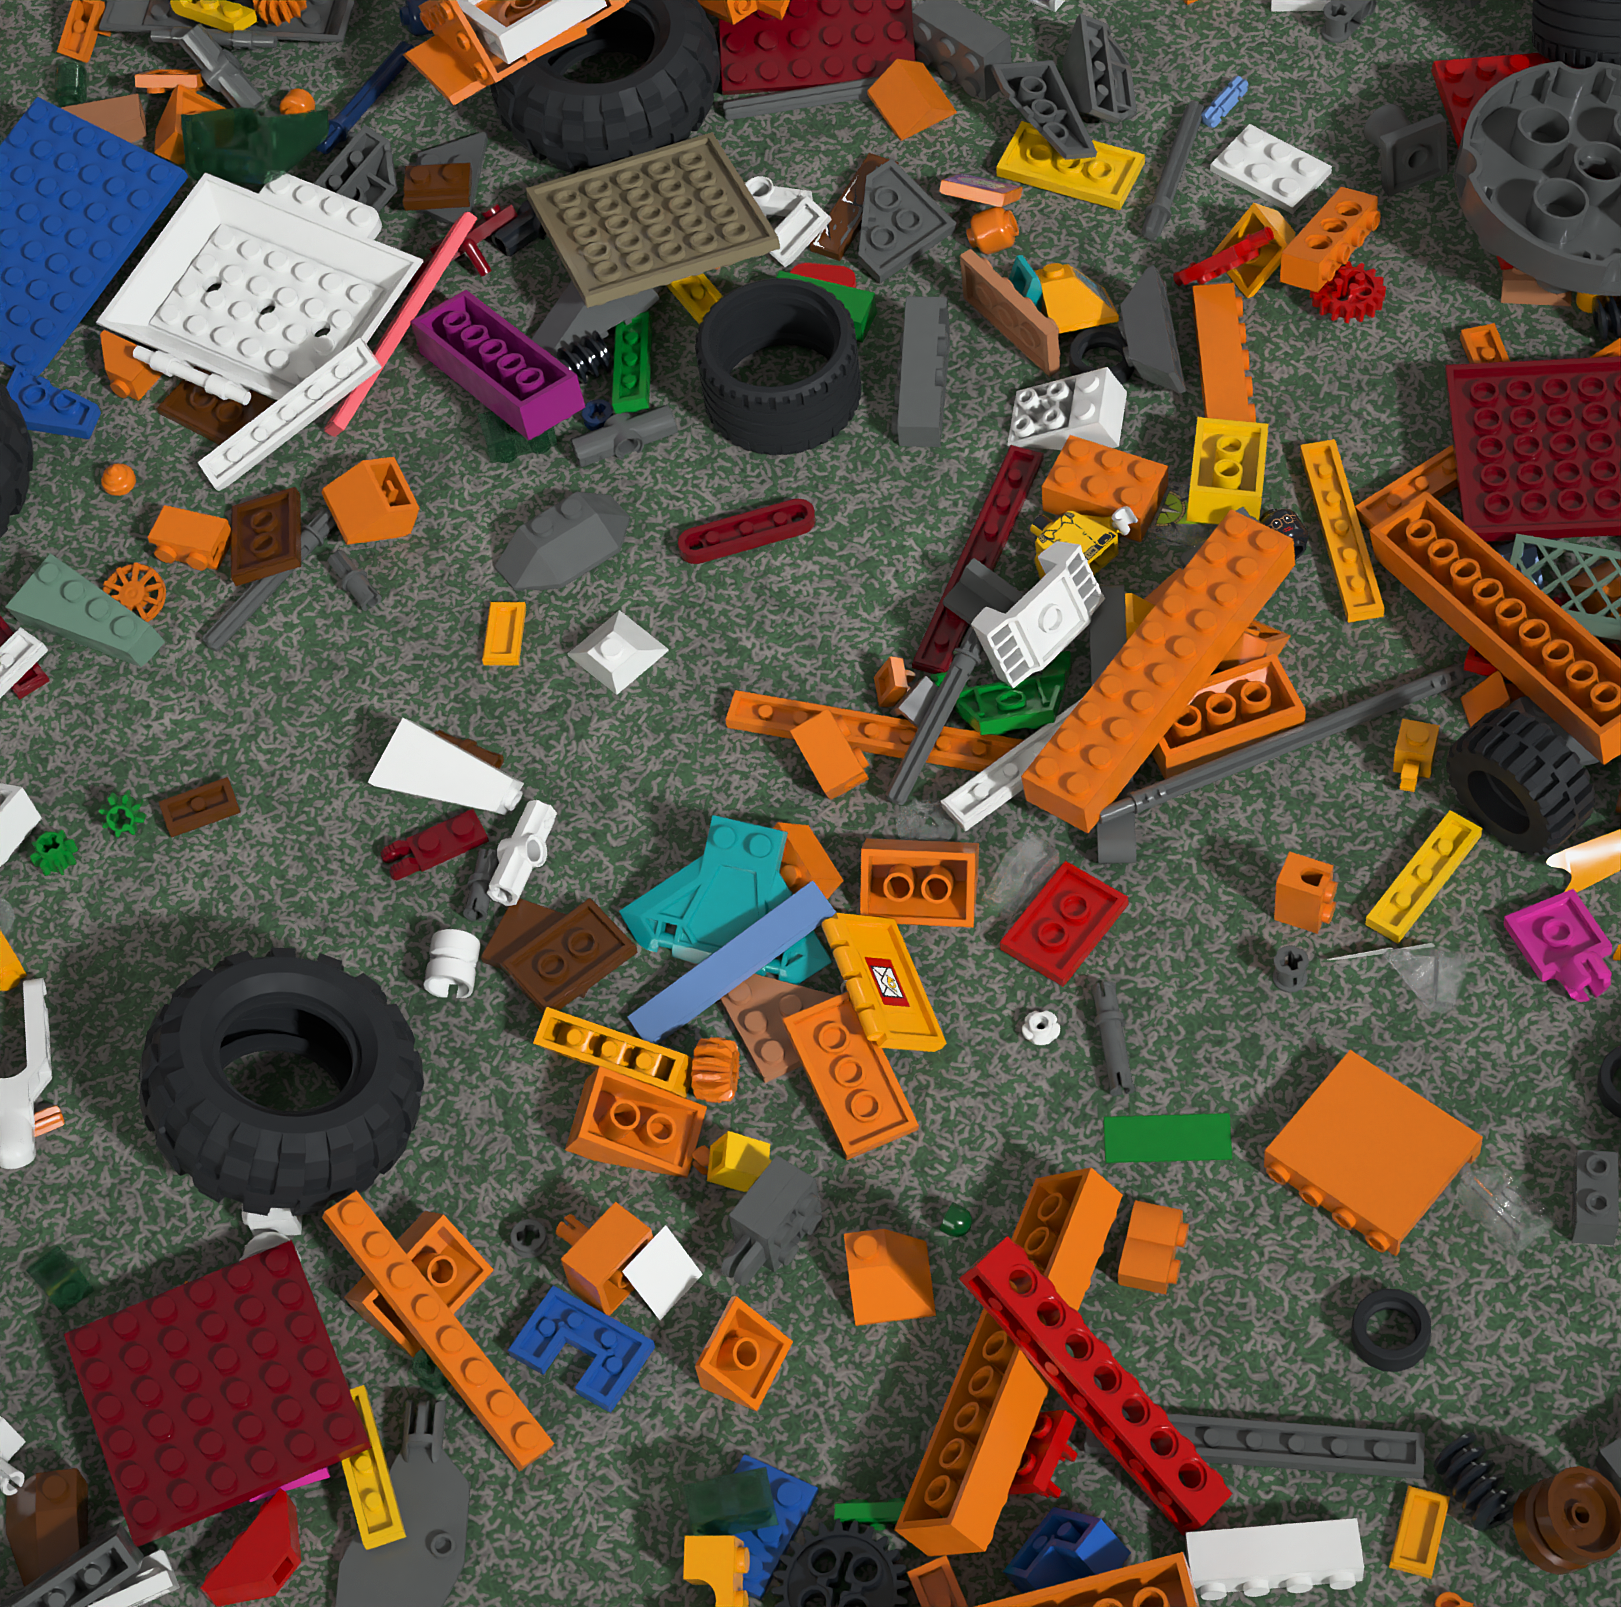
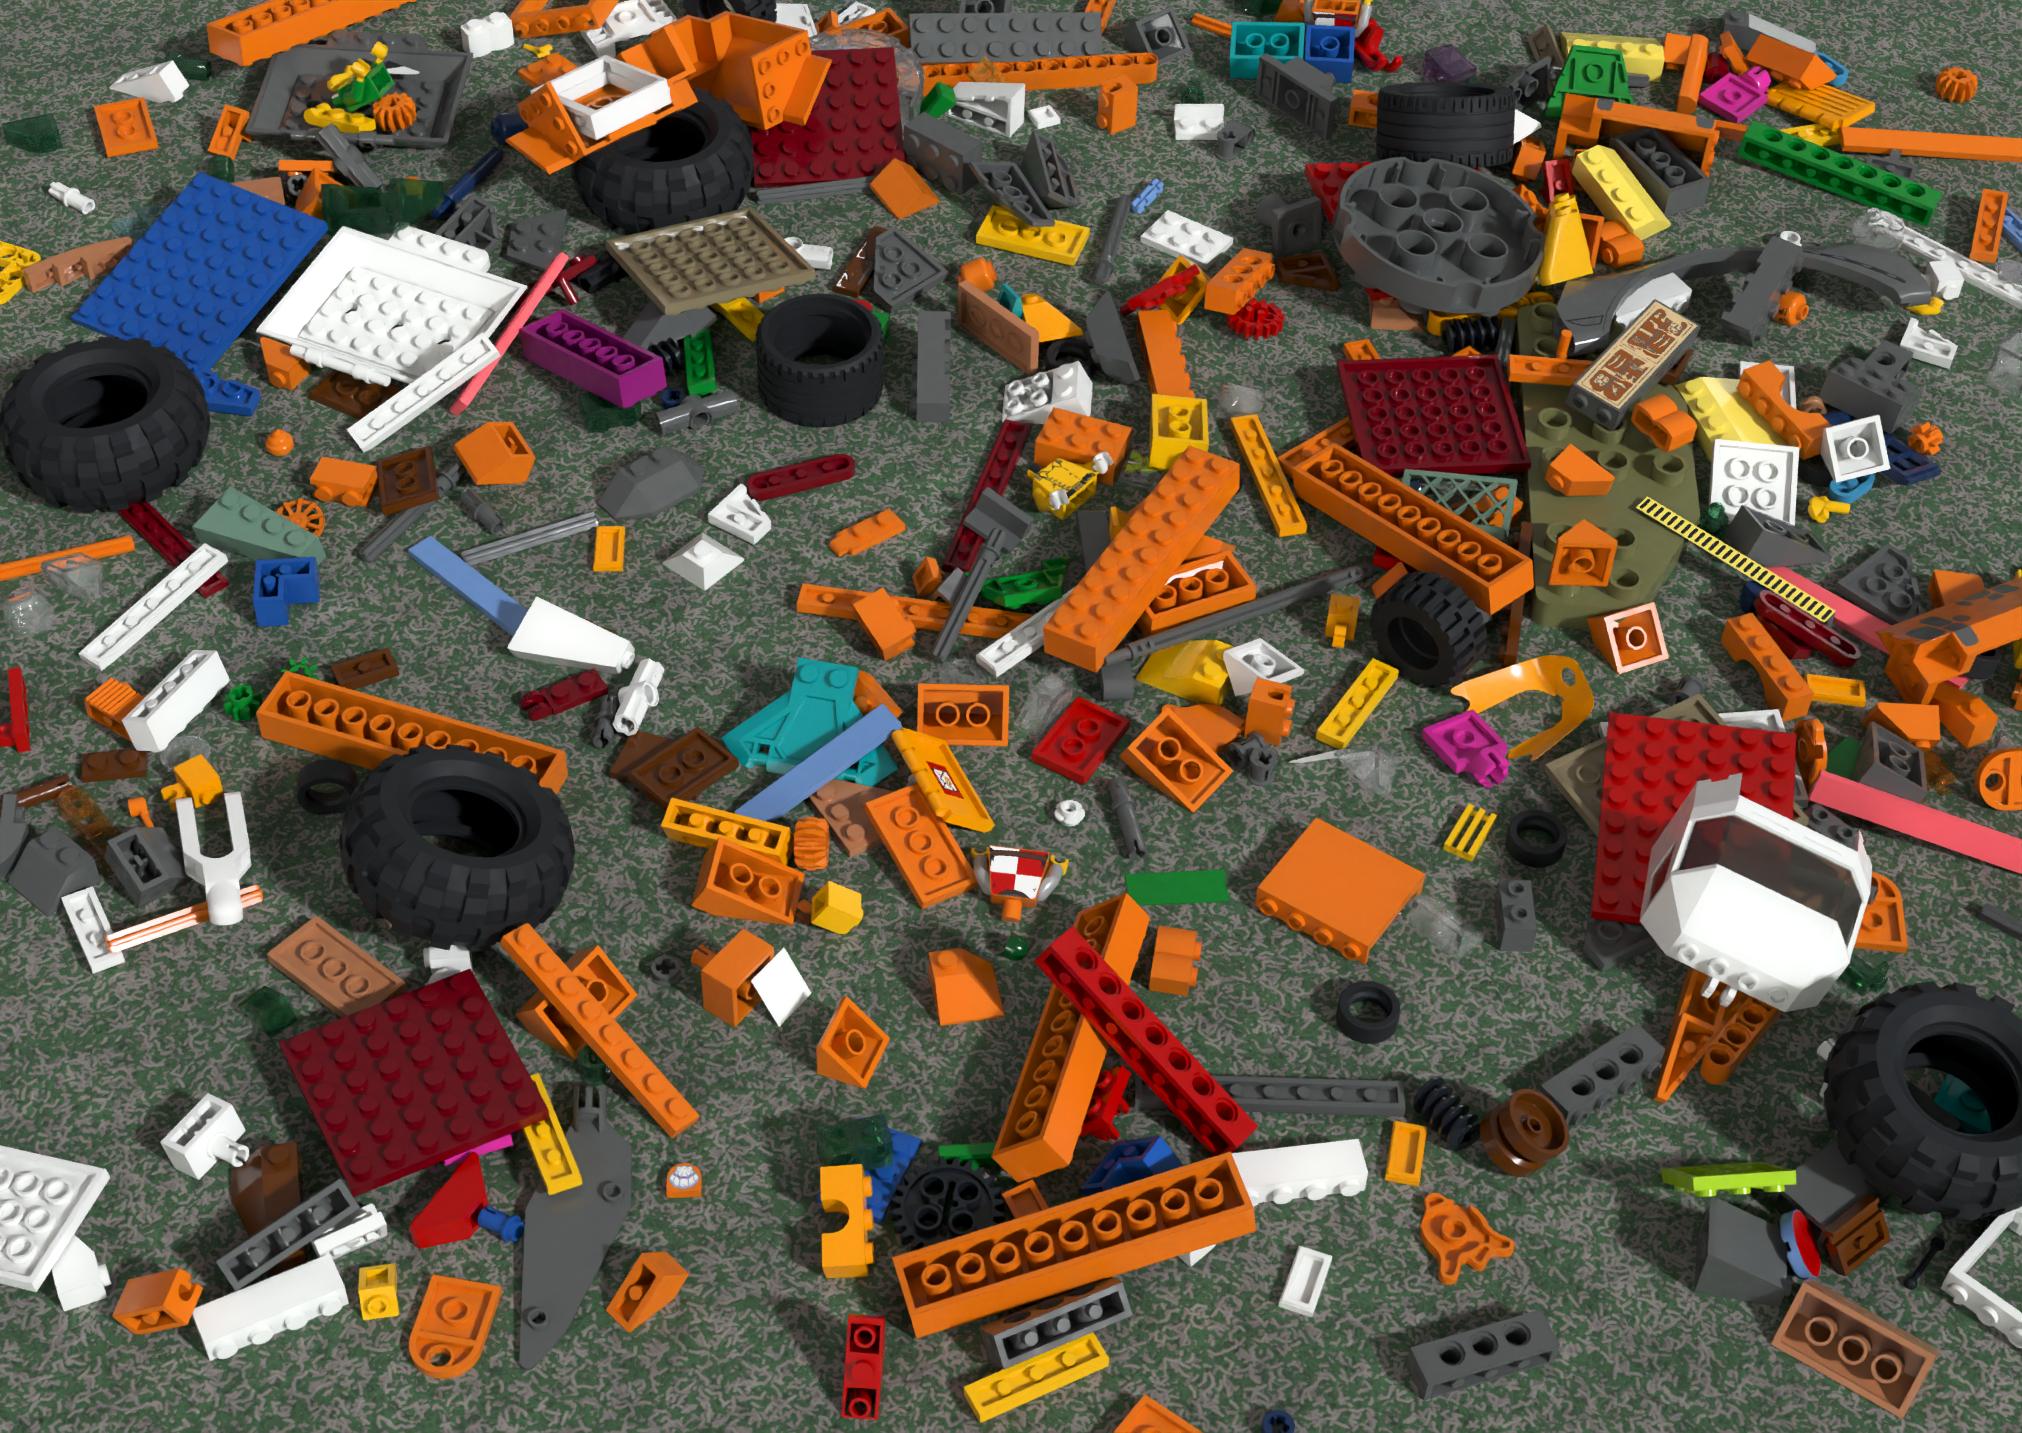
camera: 15 degrees left, 10 degrees down
(103, 687) = (281, 584): none -> blue brick
(141, 1227) = (334, 969): none -> nougat plate
(142, 977) = (325, 772): none -> black tyre
(148, 108) = (292, 182): none -> dark grey bush
(236, 908) = (371, 729): none -> orange brick
(318, 1585) = (501, 1223): none -> blue pin
(332, 683) = (469, 584): none -> medium blue tile
(408, 619) = (529, 539): none -> axle
(437, 186) = (531, 242): reddish brown plate -> none
(452, 962) = (586, 774): white wheel -> none
(529, 1532) = (684, 1181): none -> tile
(565, 1319) = (745, 1046): blue plate -> none
(667, 588) = (740, 516): none -> white wing
(772, 1220) = (869, 944): dark grey brick -> none
(799, 230) = (827, 273): white tile -> none
(823, 613) = (867, 533): none -> orange hinge
(964, 1125) = (1016, 877): none -> torso
(980, 190) = (965, 248): tile -> none
(1043, 618) = (1047, 525): white plate -> none
(1181, 960) = (1176, 761): none -> orange slope
(1218, 825) = (1190, 671): none -> yellow slope
(1220, 907) = (1211, 723): none -> orange tile
(1269, 942) = (1241, 751): none -> dark grey bush
(1298, 824) = (1258, 660): none -> white slope
(1315, 419) = (1241, 400): none -> clear hat
(1424, 216) = (1307, 270): none -> reddish brown wing
(1566, 1044) = (1478, 816): none -> yellow tile

